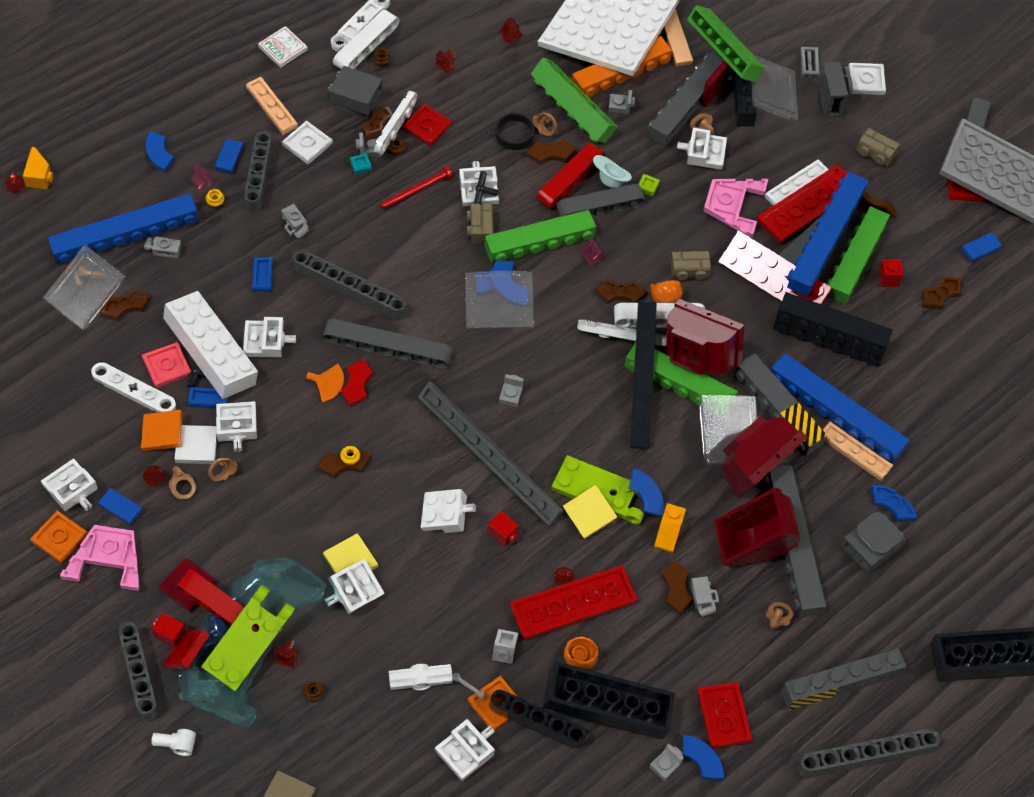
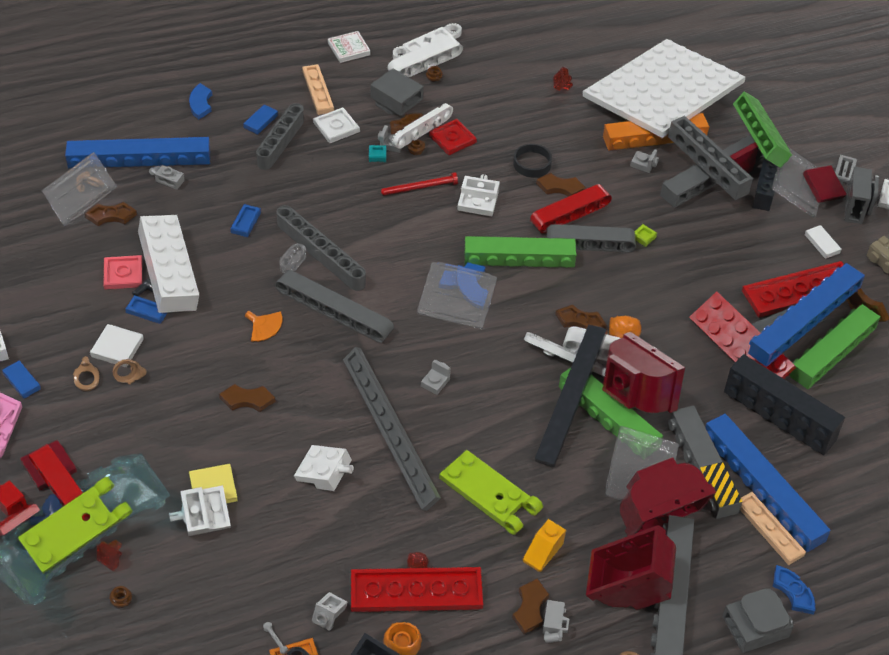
camera: 20 degrees right, 10 degrees down
(14, 183) = (63, 96): clear red tile -> none
(37, 171) = (85, 90): light orange slope -> none
(122, 382) = (92, 292): white piece -> none
(153, 475) = (63, 360): clear red tile -> none
(162, 430) = (90, 324): orange tile -> none
(201, 176) = (227, 128): clear pink tile -> none
(214, 194) = (232, 148): yellow plate -> none
(236, 422) = (161, 336): white plate -> none
(265, 337) = (223, 271): white plate -> none
(295, 221) = (295, 184): light grey piece -> none
(322, 302) = (290, 256): none -> clear beam
(350, 460) = (253, 391): yellow plate -> none
(359, 375) = (294, 328): red tile -> none
(420, 677) = (230, 614): white piece -> none
(445, 61) = (490, 89): clear red tile -> none
(481, 188) = (478, 197): black piece -> none
(481, 222) = (467, 224): dark tan brick -> none
(503, 529) = (374, 499): red brick -> none
(539, 122) = (559, 157): medium nougat piece -> none
(574, 101) = (598, 147): bright green brick -> none
(590, 512) = (468, 508): light yellow tile -> none
(593, 252) = (566, 278): clear pink tile -> none
(610, 172) = (610, 214): light aqua piece -> none
(648, 493) = (533, 504): blue tile -> none
(677, 41) = (719, 122): light nougat tile -> none
(687, 88) = (710, 157): none -> dark grey brick
(690, 265) = (658, 312): dark tan brick -> none
(705, 124) = (719, 195): medium nougat piece -> none
(705, 149) = (711, 217): white plate -> none
(726, 199) = (718, 264): bright pink wing -> none
(795, 182) = (793, 267): white tile -> none
(797, 84) = (824, 183): none -> dark red tile
(813, 146) = (823, 242): none -> white tile
(890, 273) = (864, 370): red brick -> none

